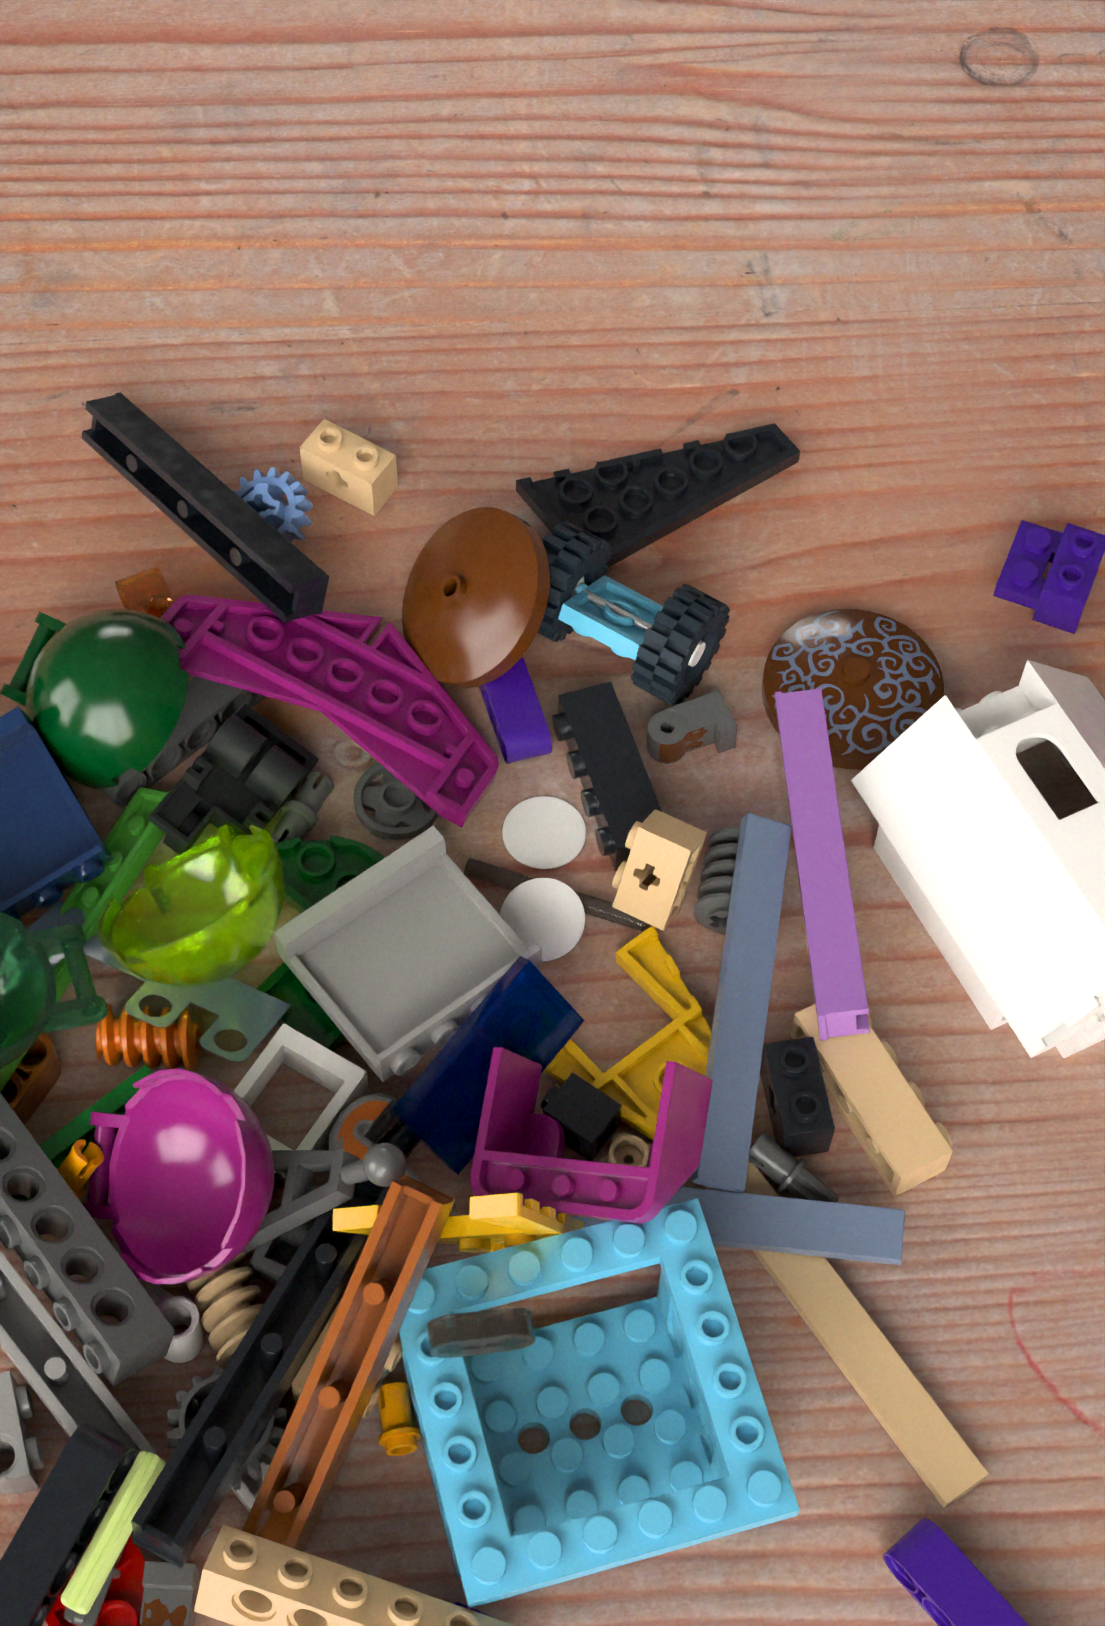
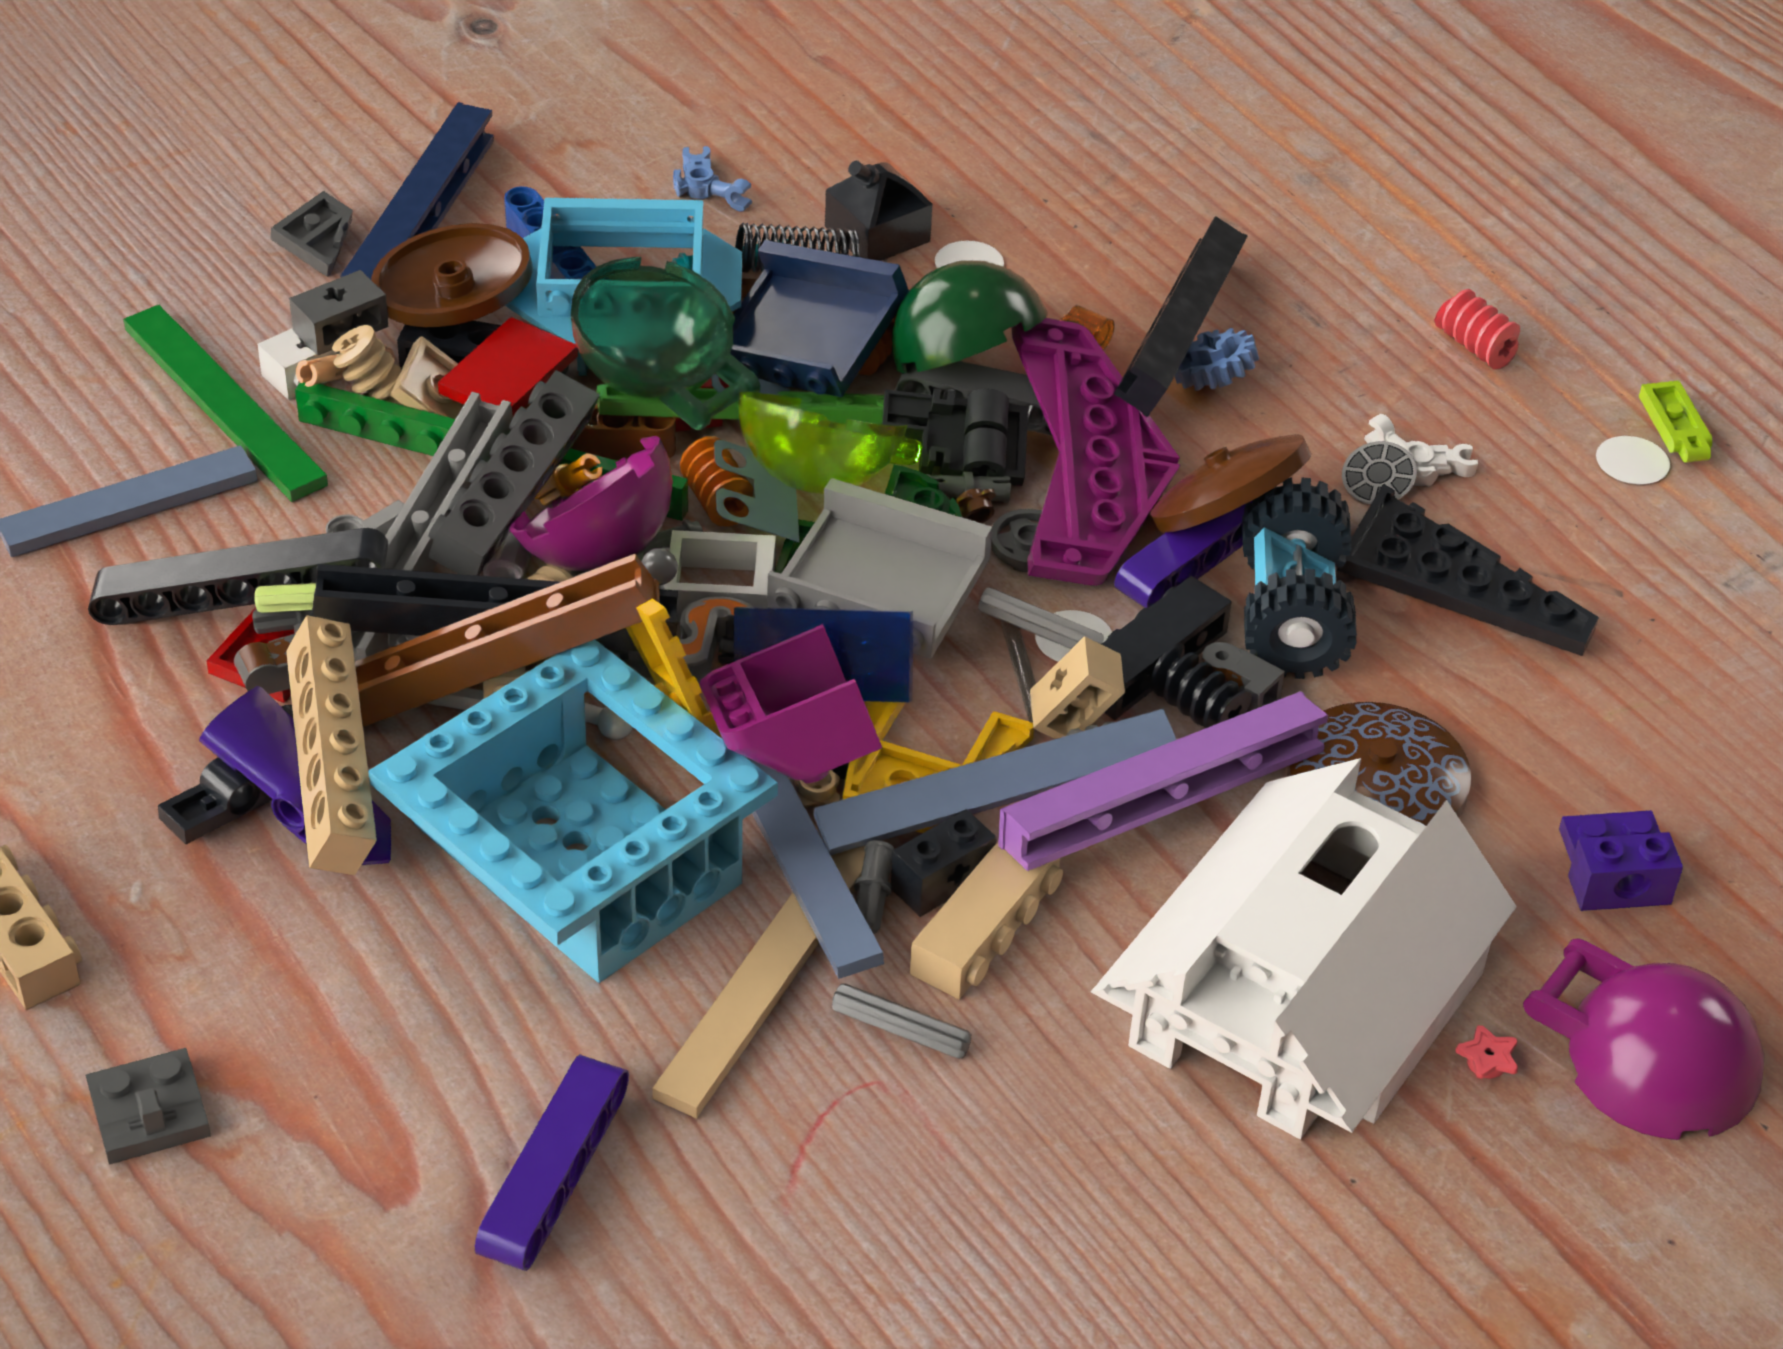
camera: 60 degrees right, 15 degrees down
(332, 820) = (976, 504): none -> reddish brown plate
(349, 467) = (1303, 386): tan brick -> none
(362, 292) = (1479, 328): none -> coral piece
(480, 1332) = (571, 682): clear smoke beam -> none
(488, 438) = (1429, 460): none -> white piece
(488, 474) = (1378, 464): none -> sticker
(528, 850) = (1035, 619): none -> light grey axle
(546, 915) = (990, 660): white sticker -> none
(567, 228) = (1677, 420): none -> lime hinge
(582, 286) = (1633, 460): none -> white sticker
(697, 767) = (1196, 690): none -> black piece
(959, 1234) = (901, 1020): none -> axle

